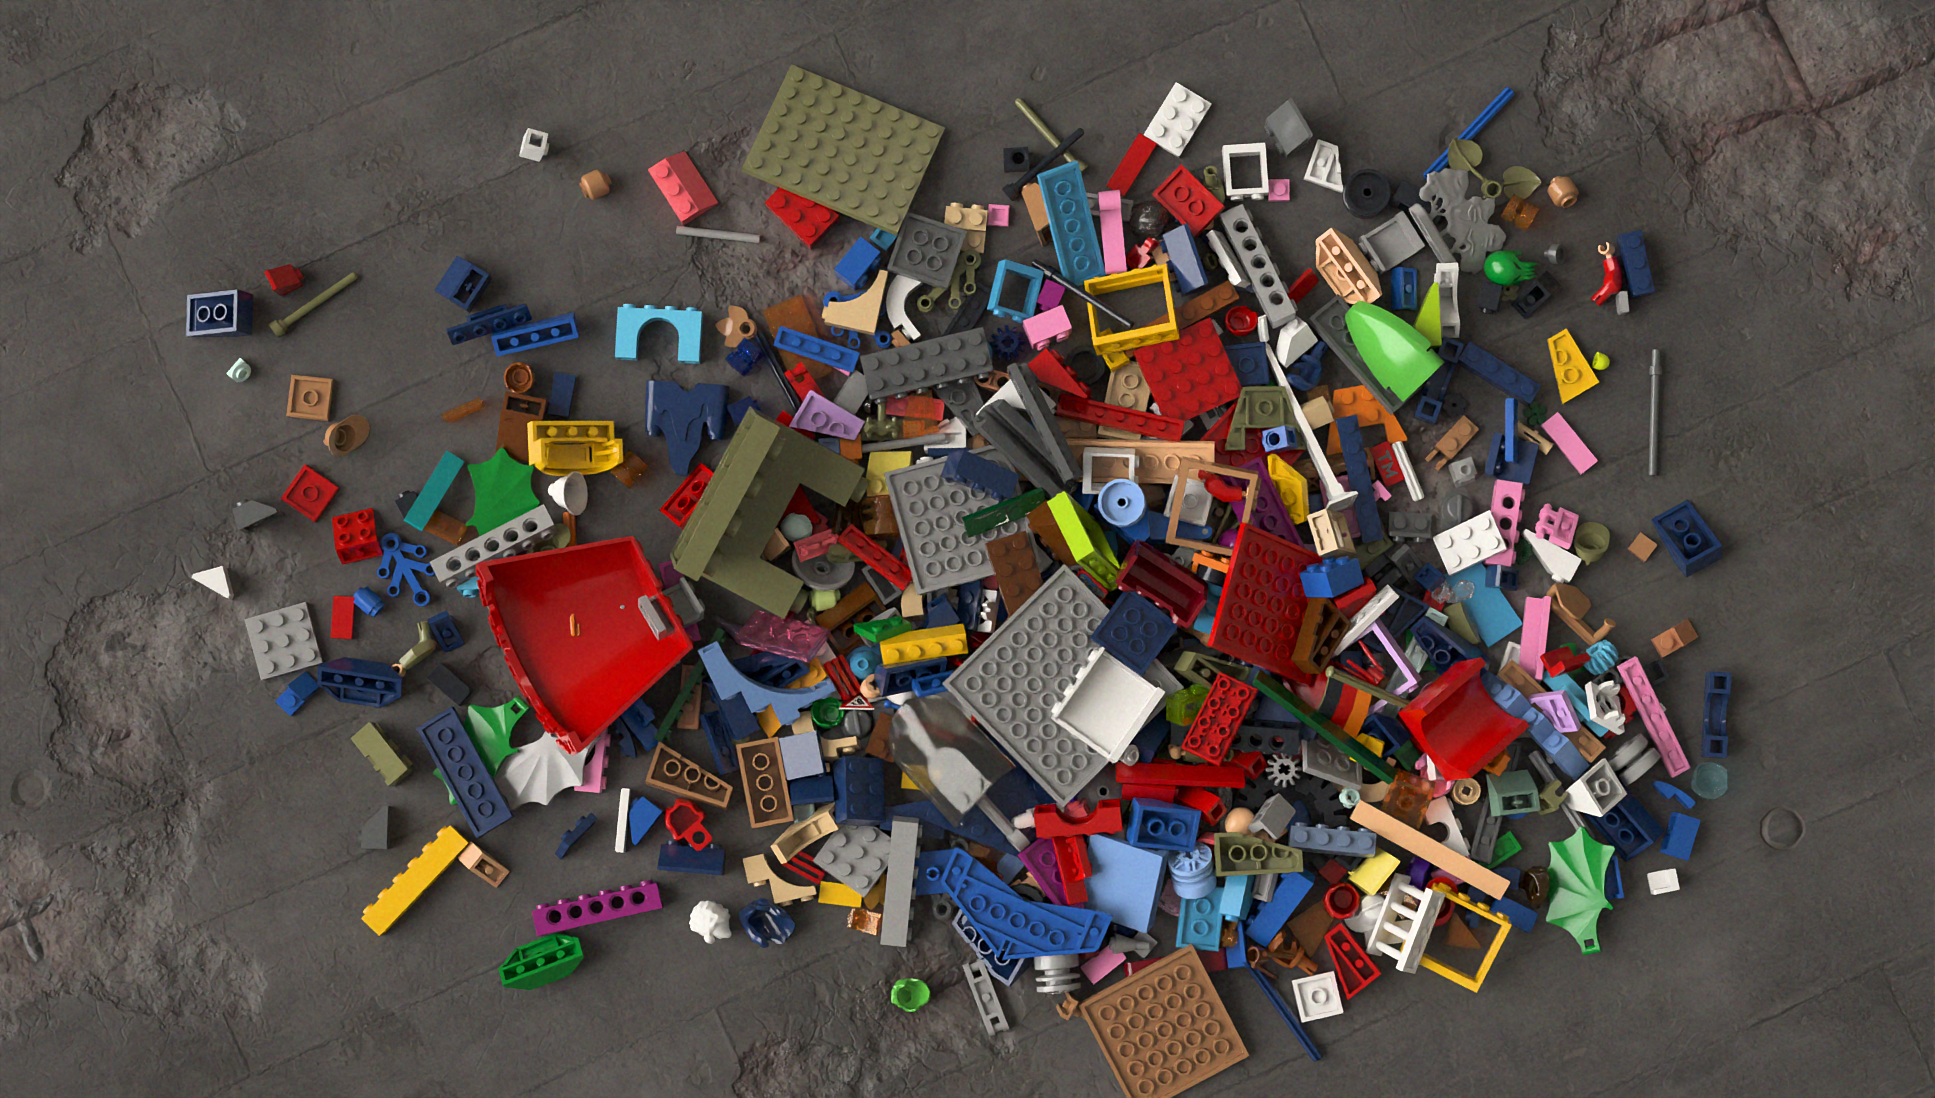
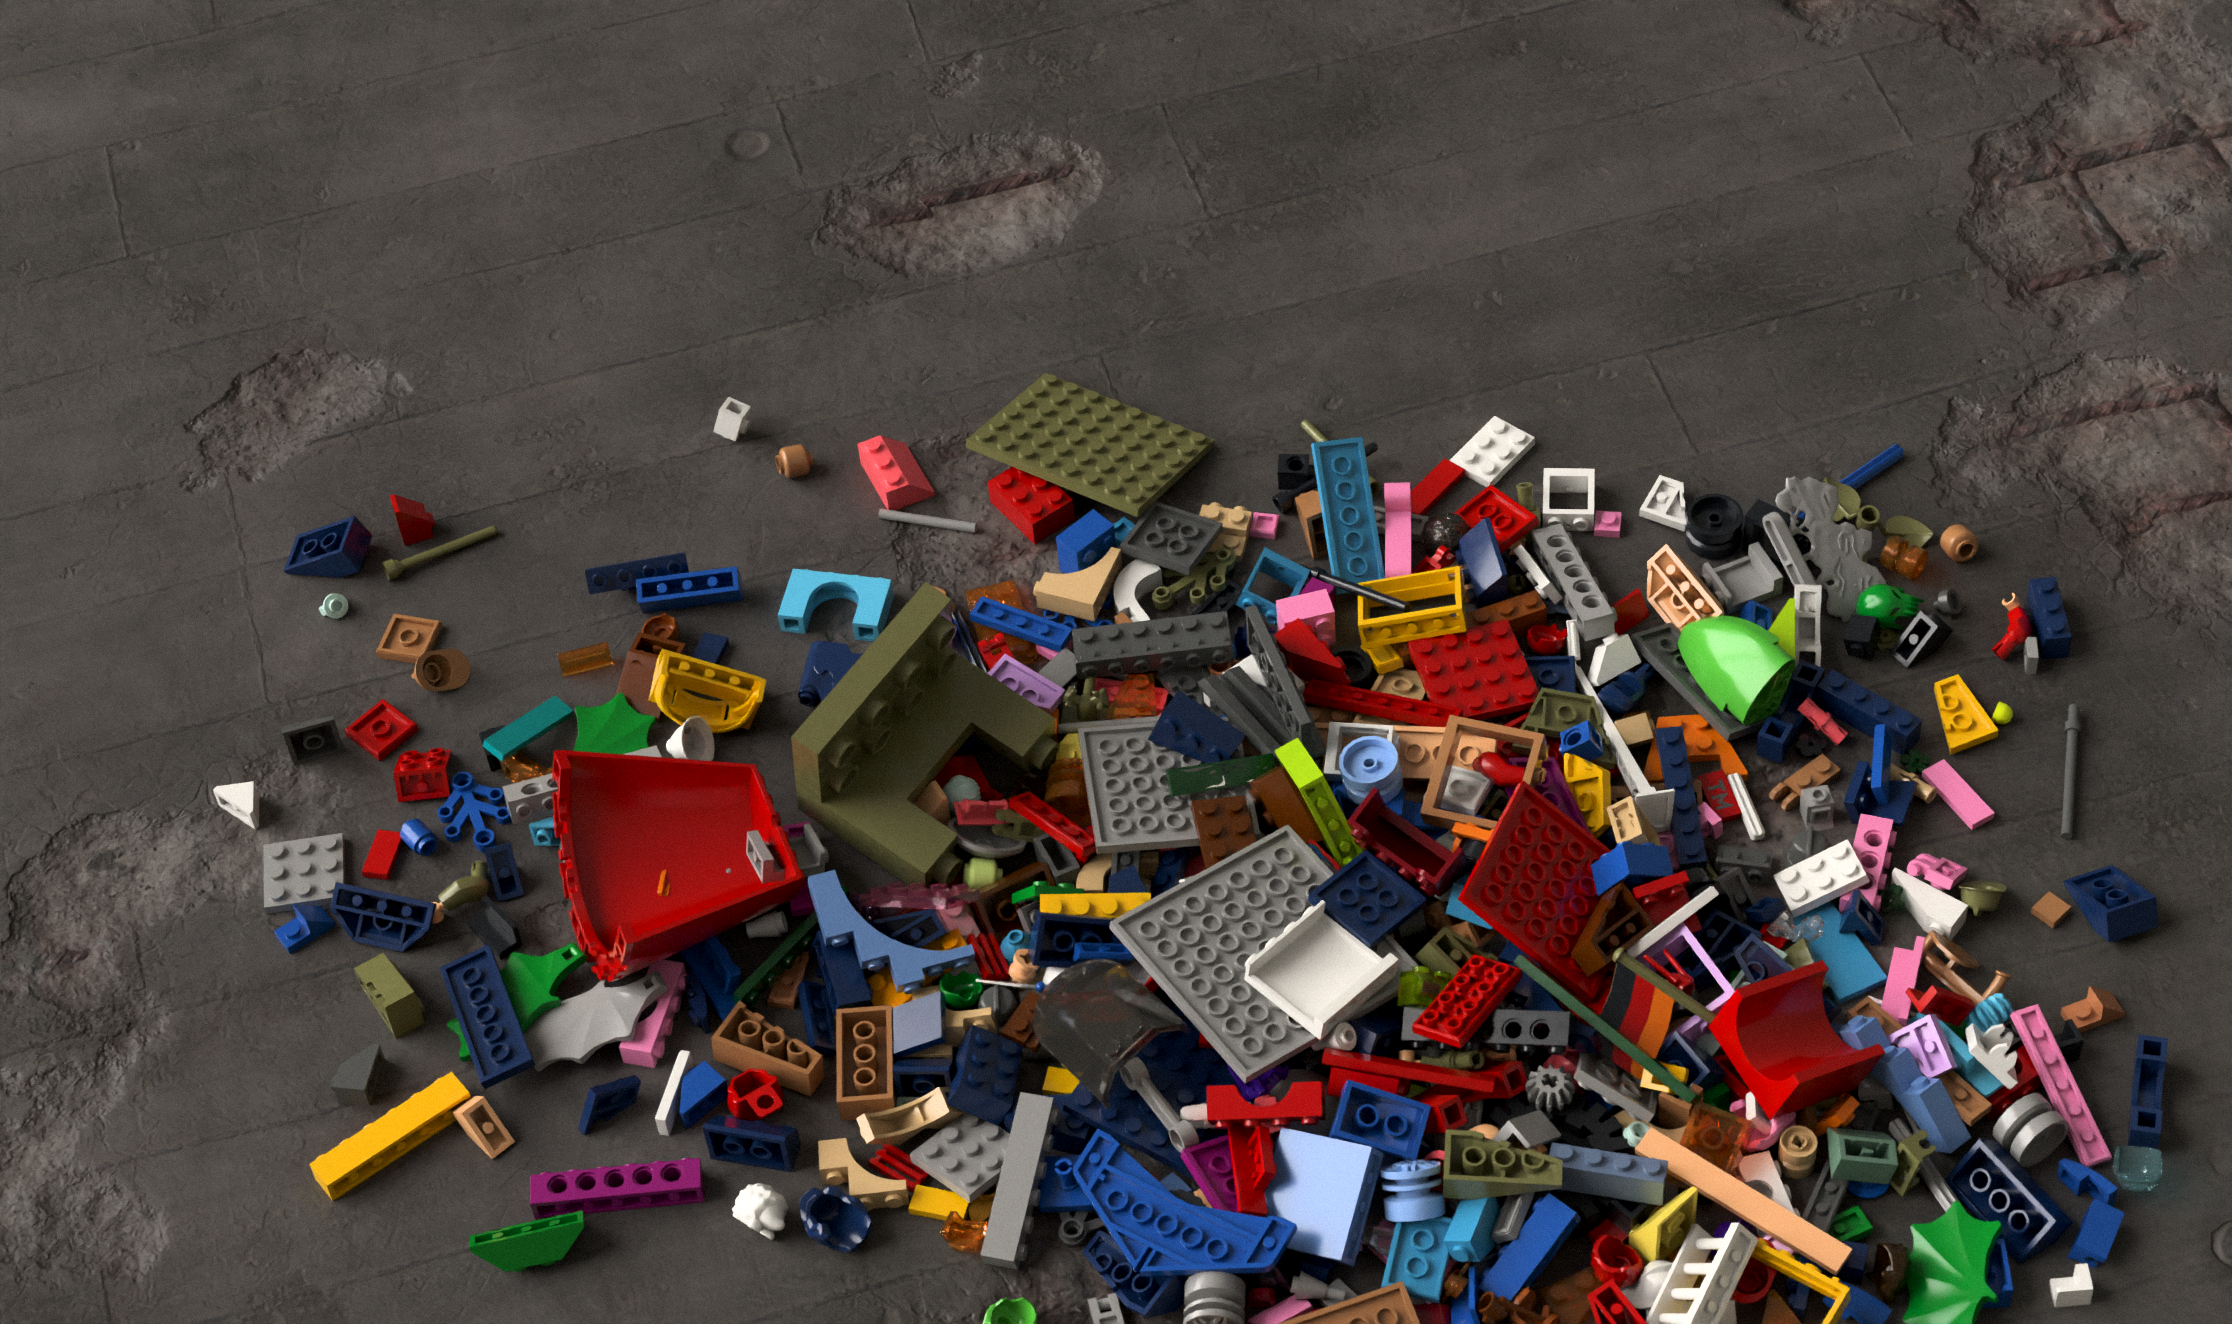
camera: 10 degrees right, 35 degrees down
(463, 284) = (620, 540): dark blue slope -> none
(629, 469) = (771, 726): clear orange wheel -> none
(1288, 129) = (1625, 454): slope -> none
(1463, 387) = (1822, 721): none -> coral pin
(1595, 791) = (1969, 1143): white slope -> none

